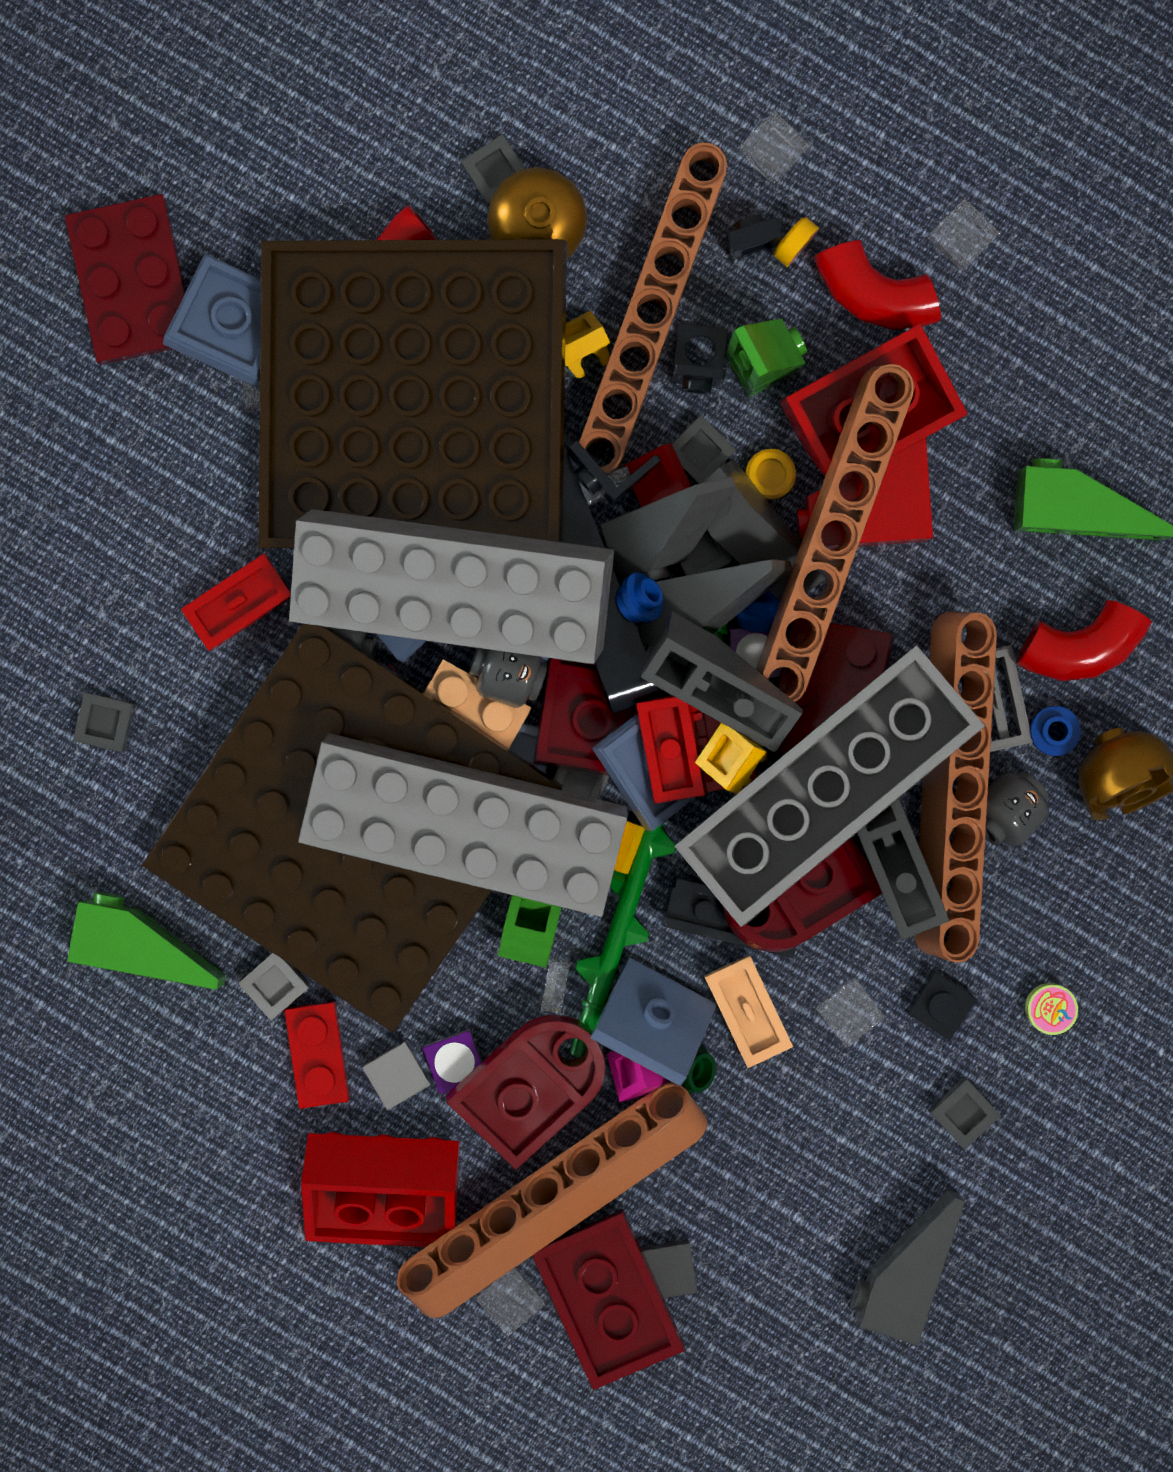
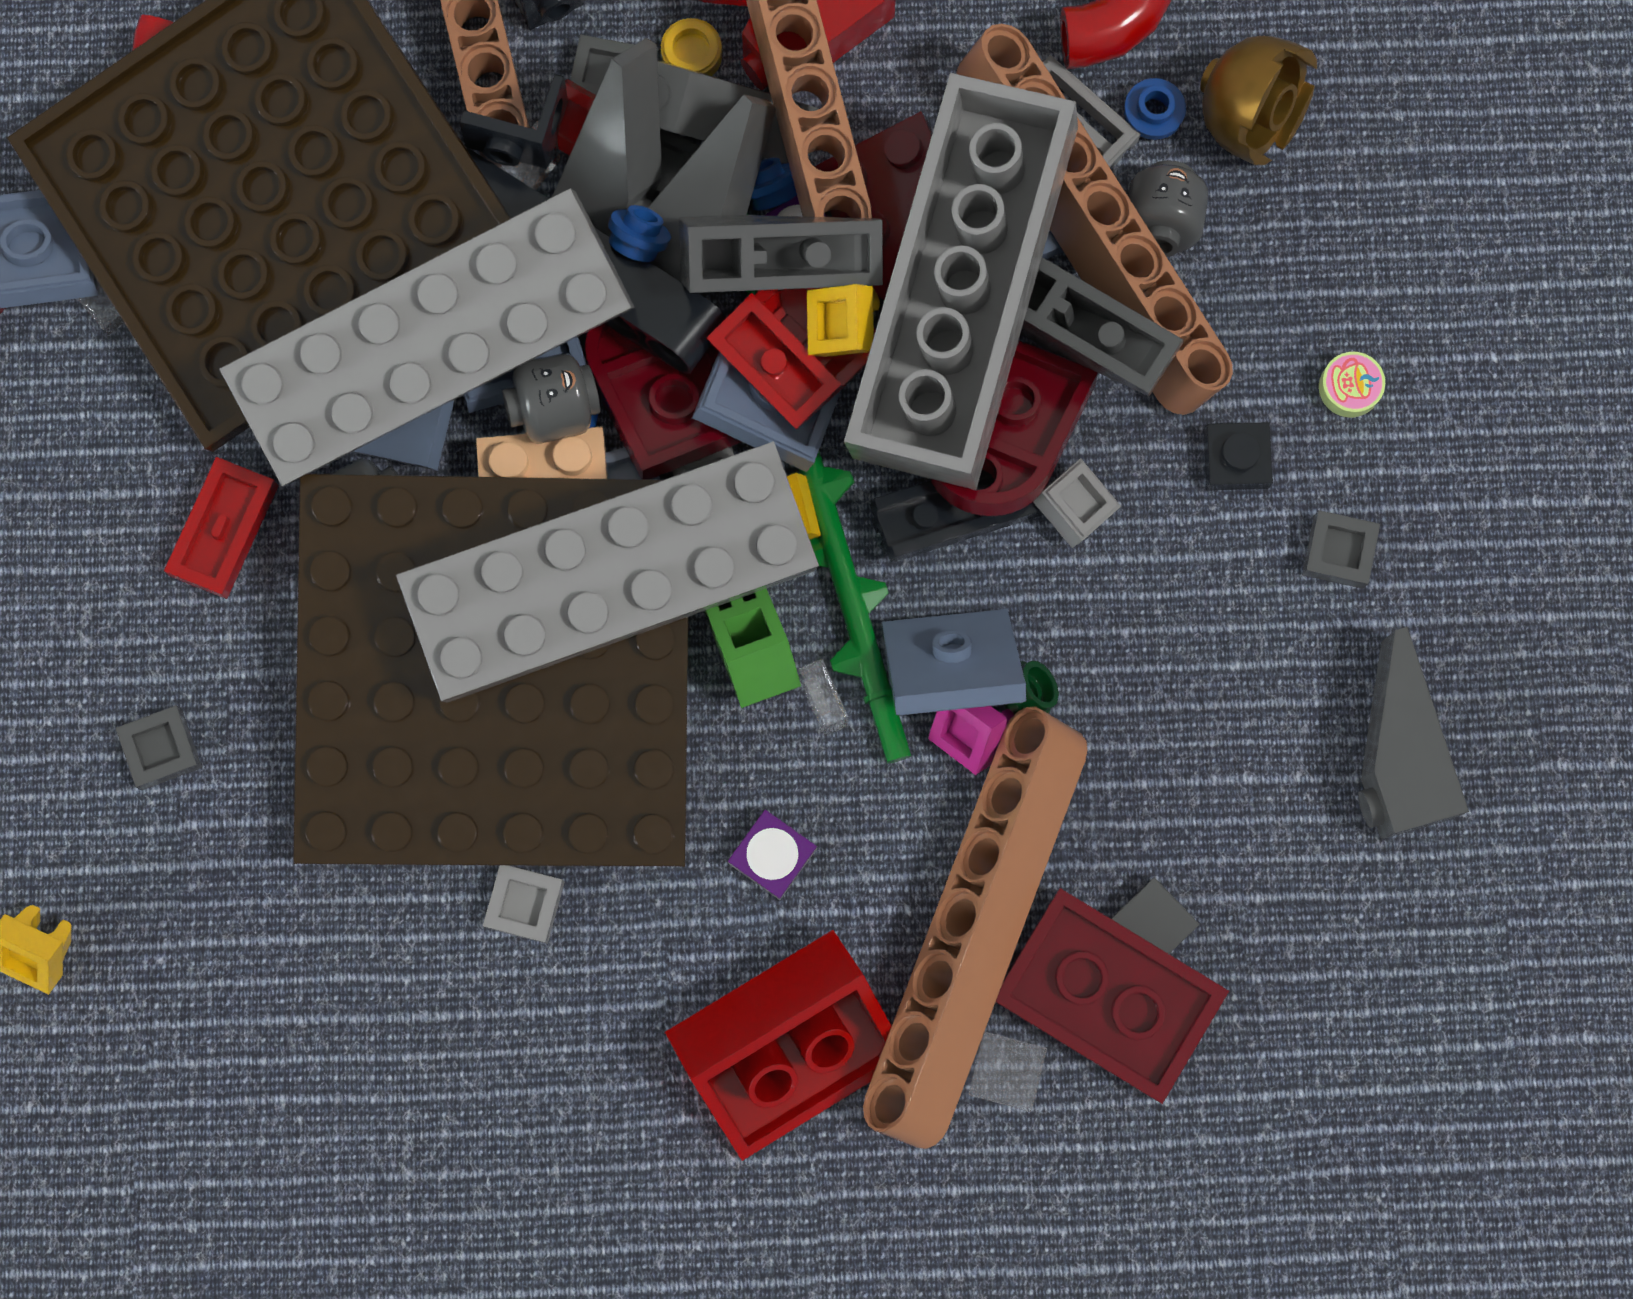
camera: 35 degrees left, 10 degrees down
(131, 942) = (328, 960): bright green slope -> none
(317, 1054) = (619, 947): red plate -> none
(396, 1075) = (720, 911): light grey tile -> none
(528, 1089) = (868, 825): dark red plate -> none
(584, 337) = (412, 31): yellow tile -> none
(748, 1011) = (1044, 591): light nougat plate -> none
(811, 967) = (1076, 503): none -> light grey tile
(850, 1012) = (1150, 526): clear tile -> none

